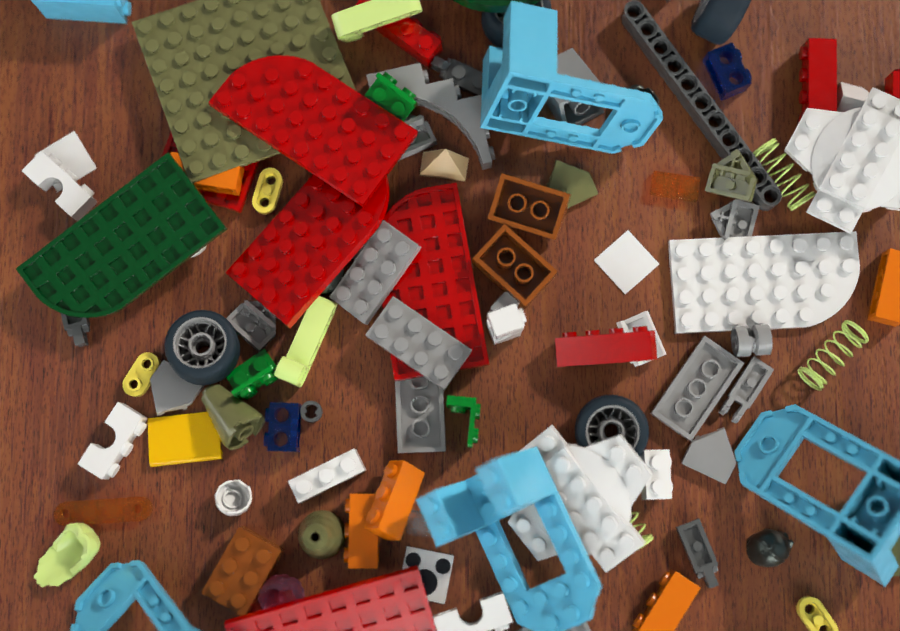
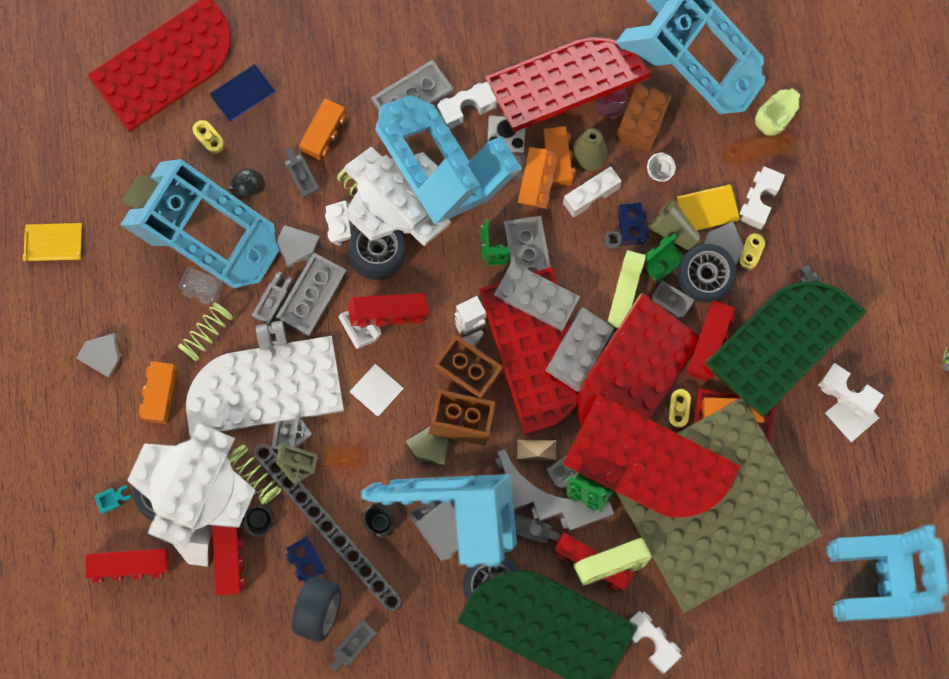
camera: 170 degrees right, 5 degrees down
(214, 264) = (710, 339): none -> red brick
(781, 119) = (258, 520): none -> pearl dark grey hair
(838, 413) = (200, 285): none -> clear brick

